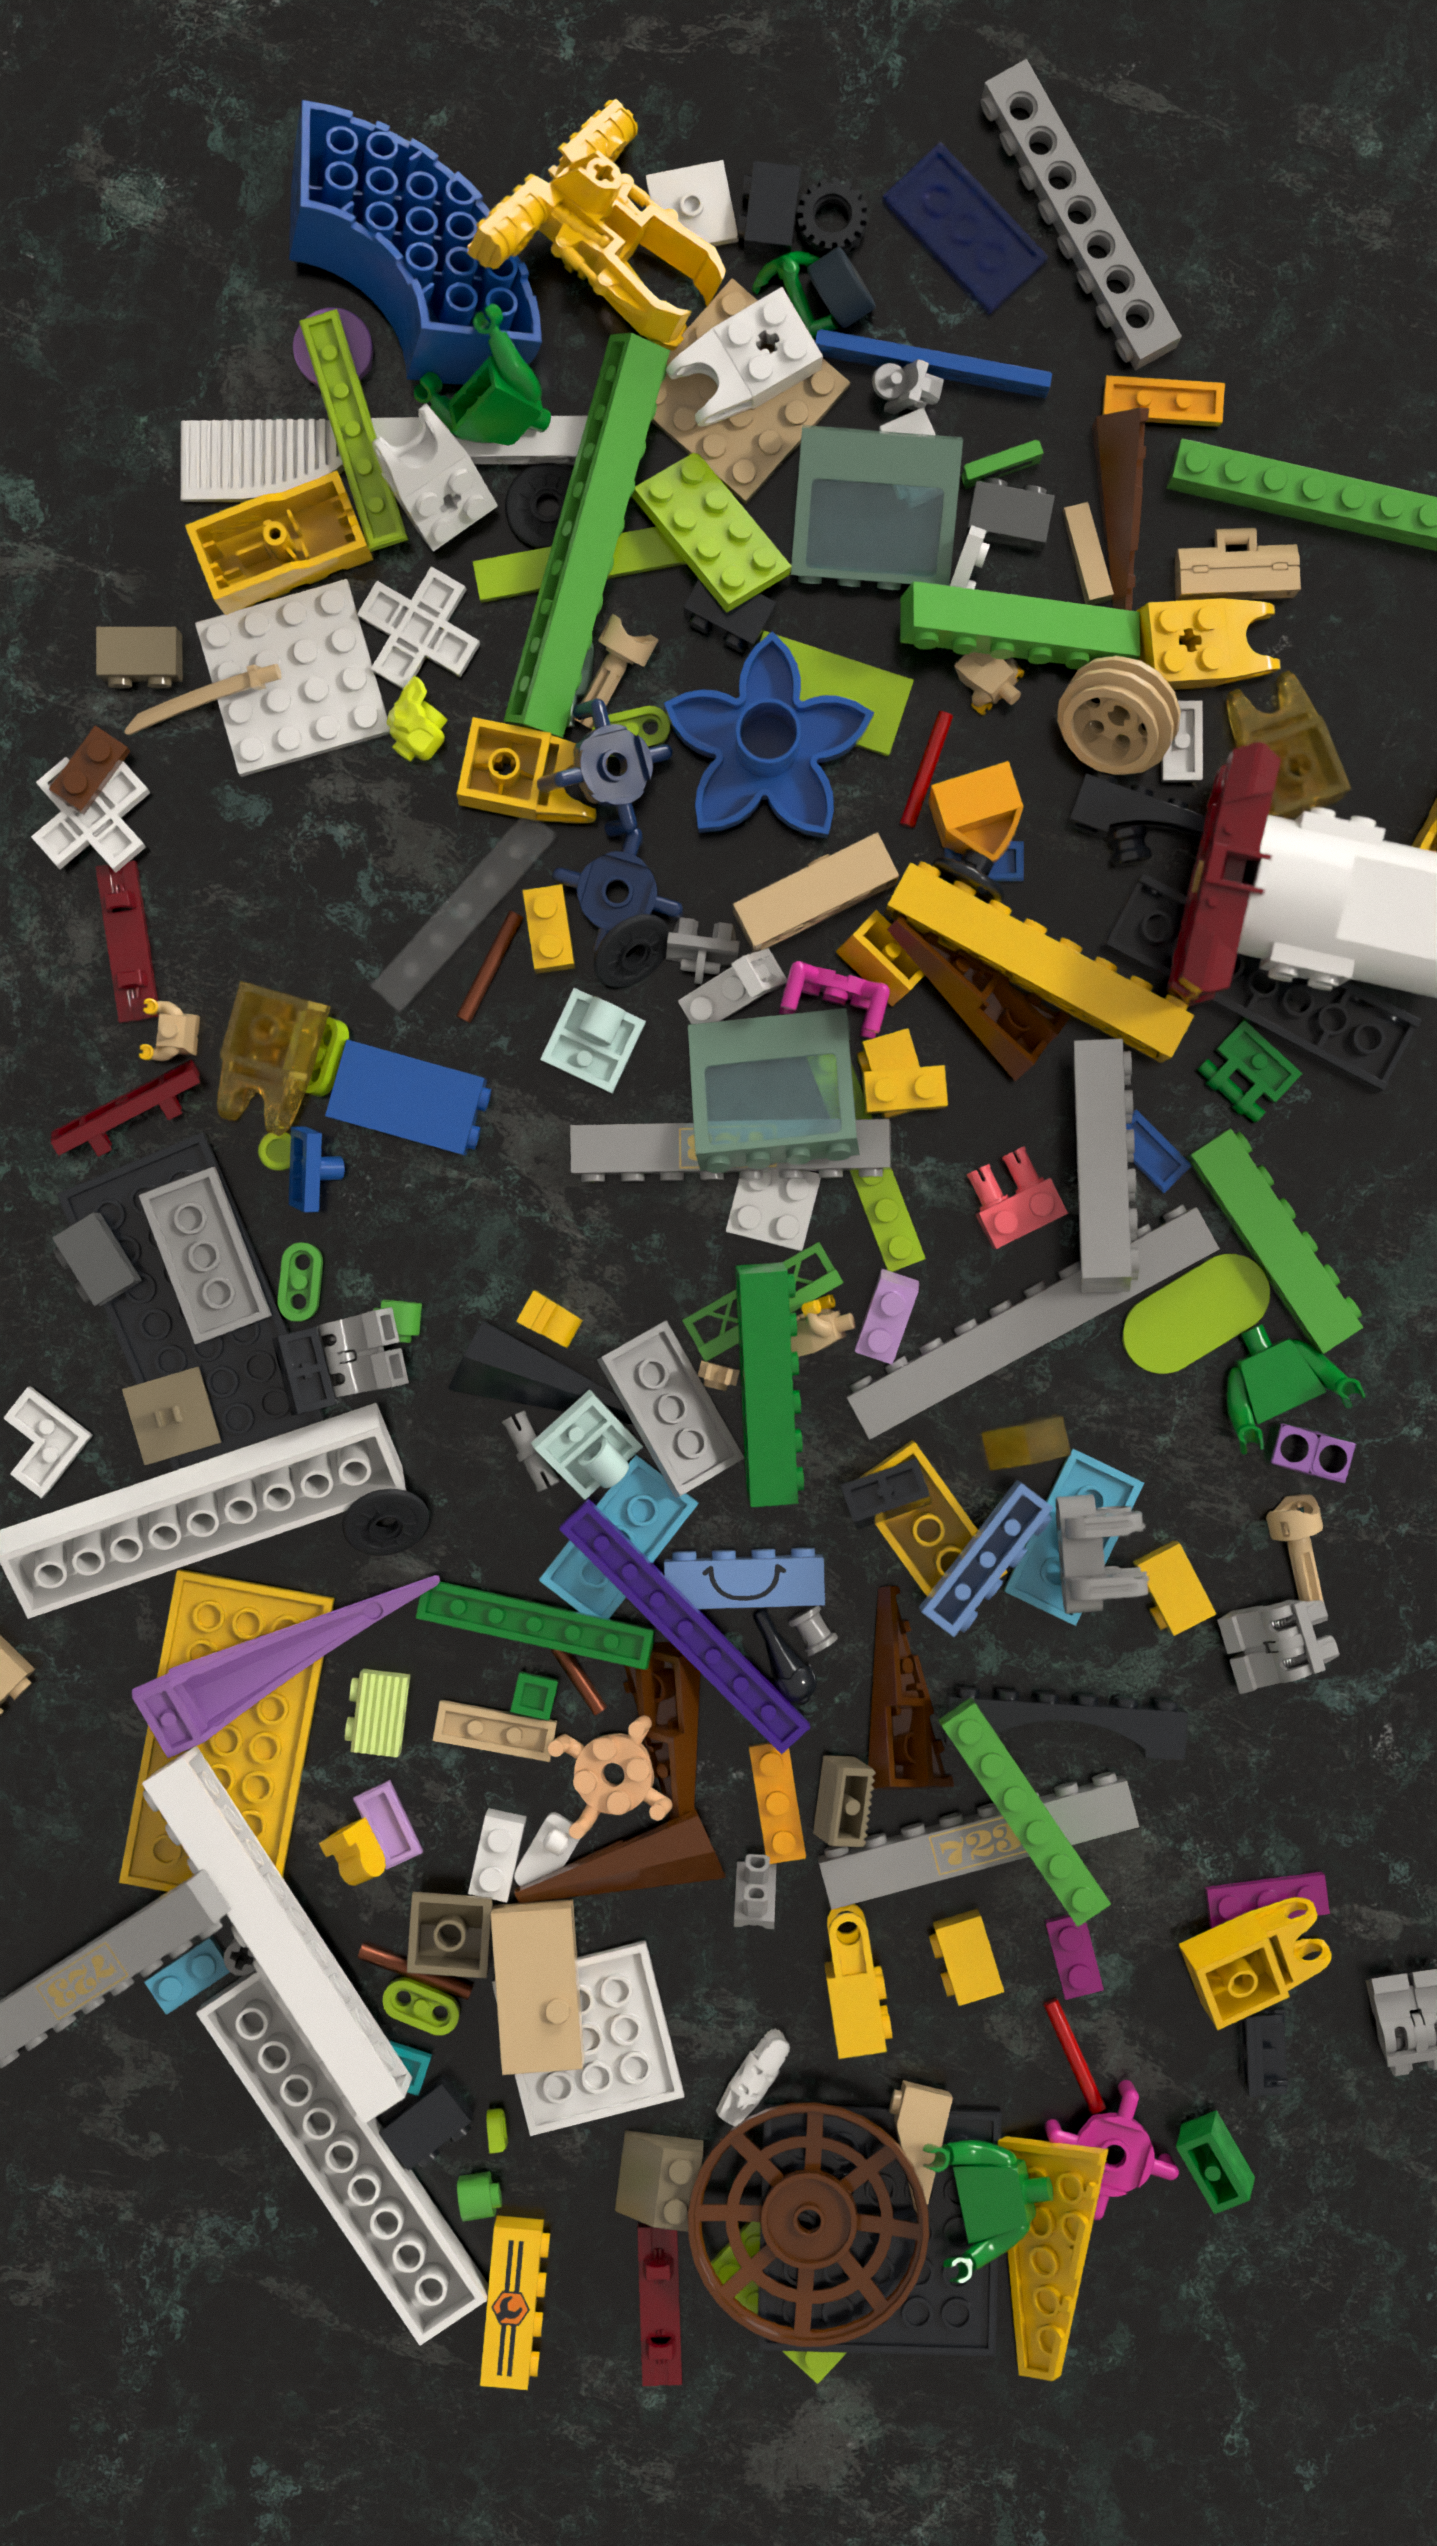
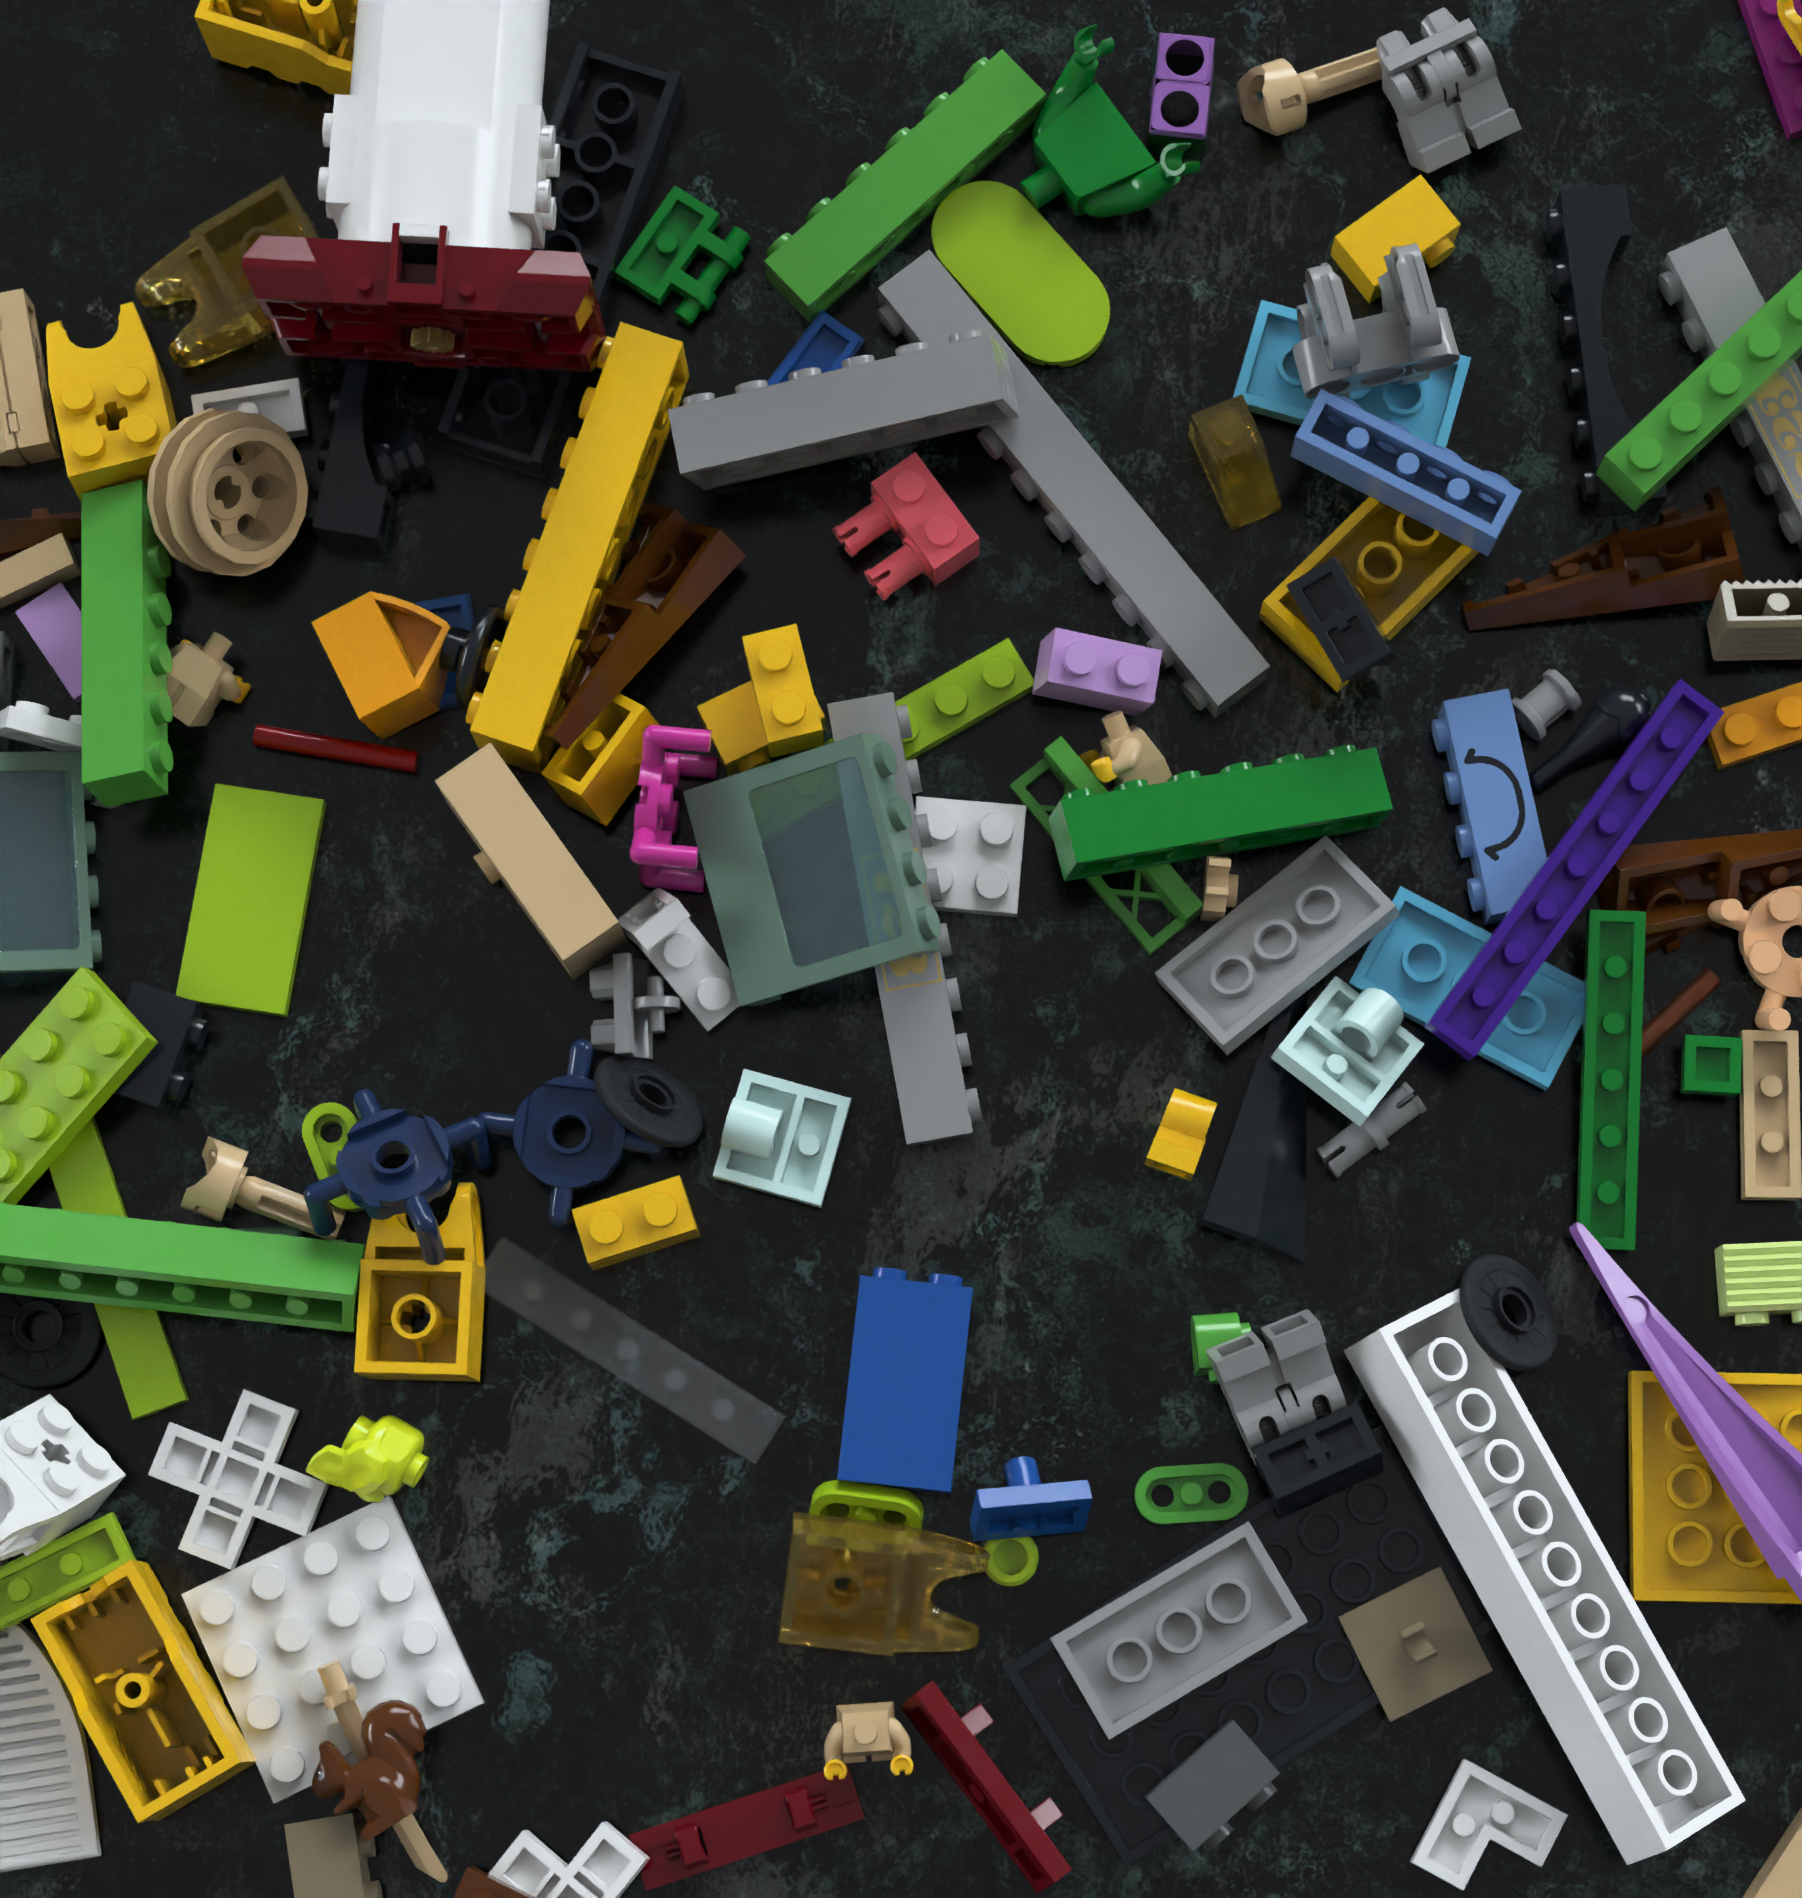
camera: 90 degrees left, 10 degrees down
(192, 698) = (384, 1781): none -> reddish brown animal
(489, 966) = (701, 1301): copper bar -> none
(767, 743) = (333, 962): blue plant -> none
(1047, 581) = (57, 630): none -> lavender tile

